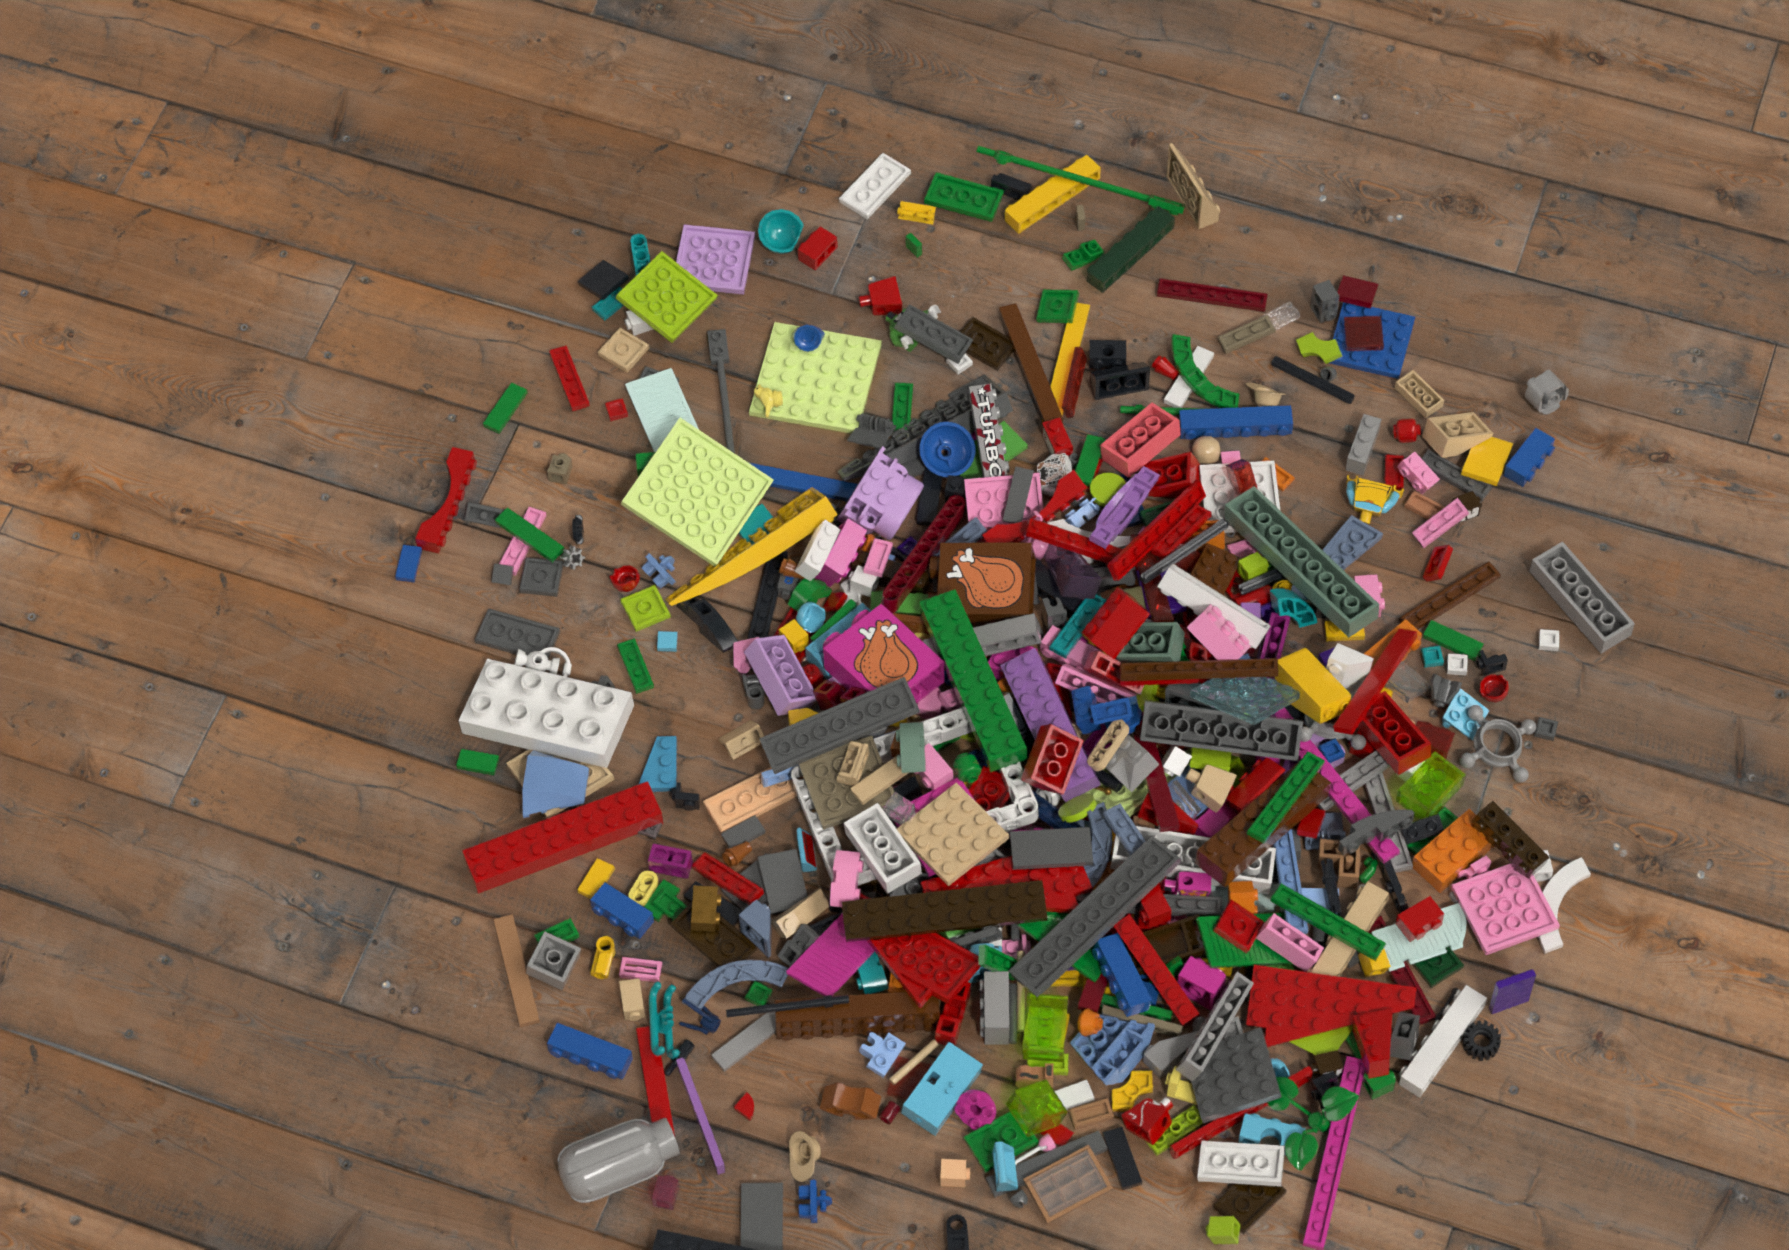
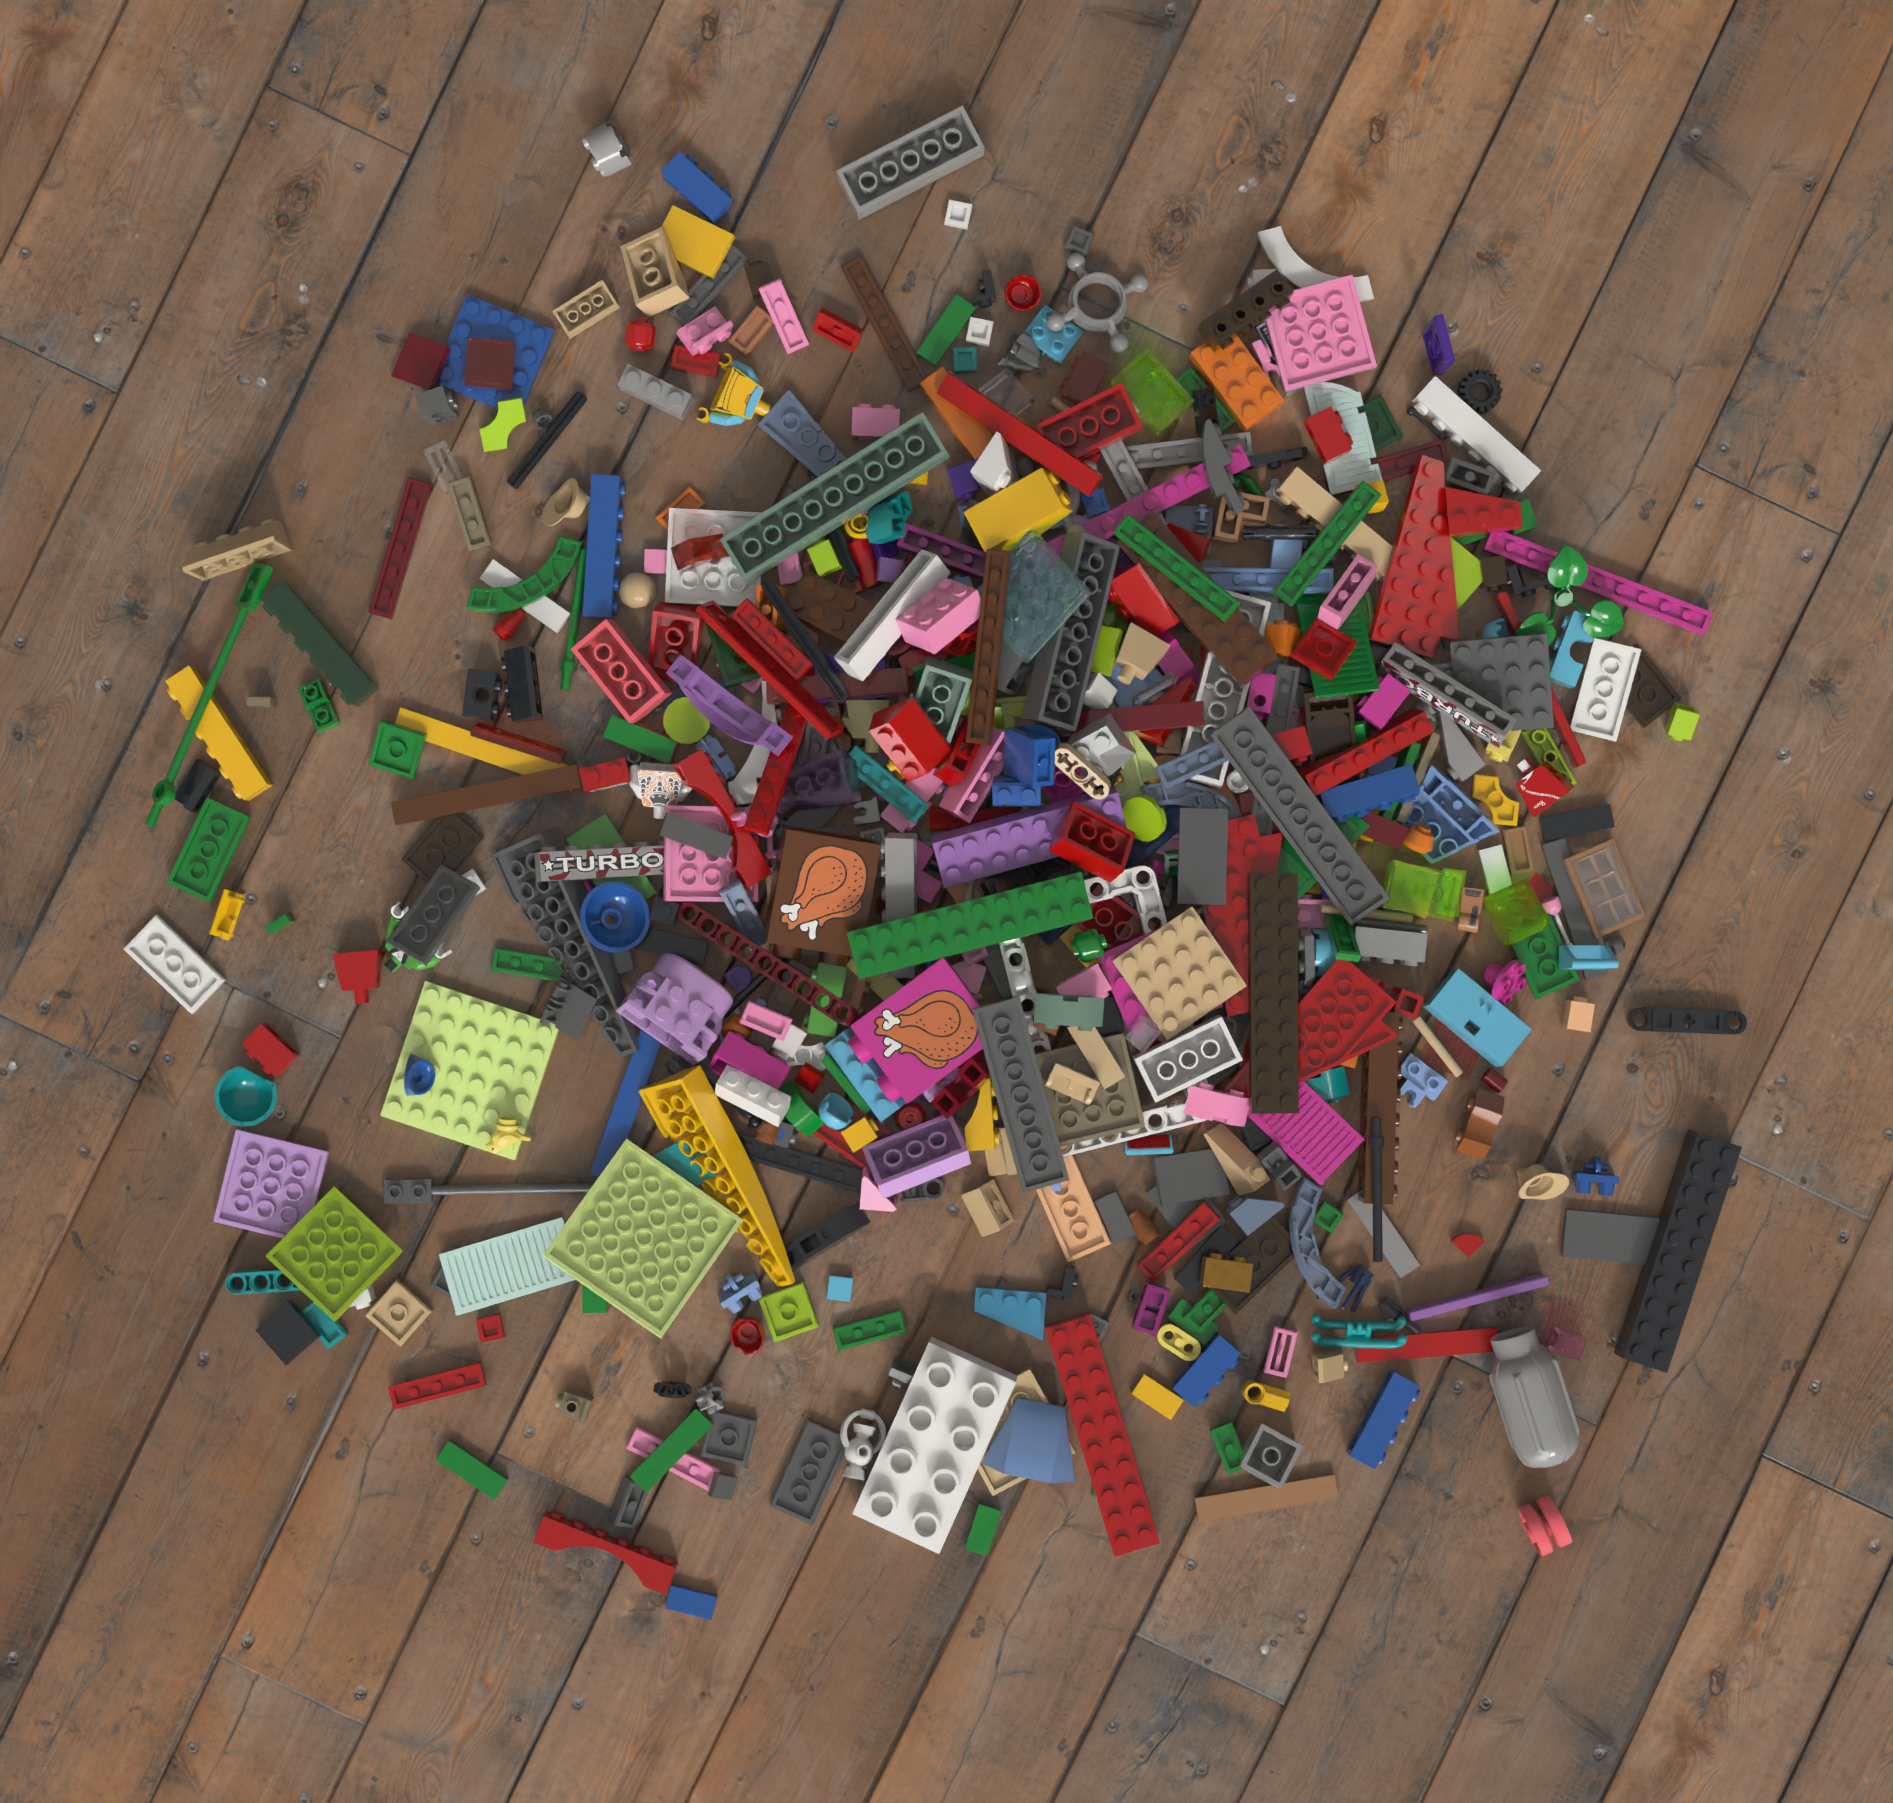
camera: 85 degrees left, 30 degrees up
(506, 1183) = (1542, 1526): none -> coral wheel

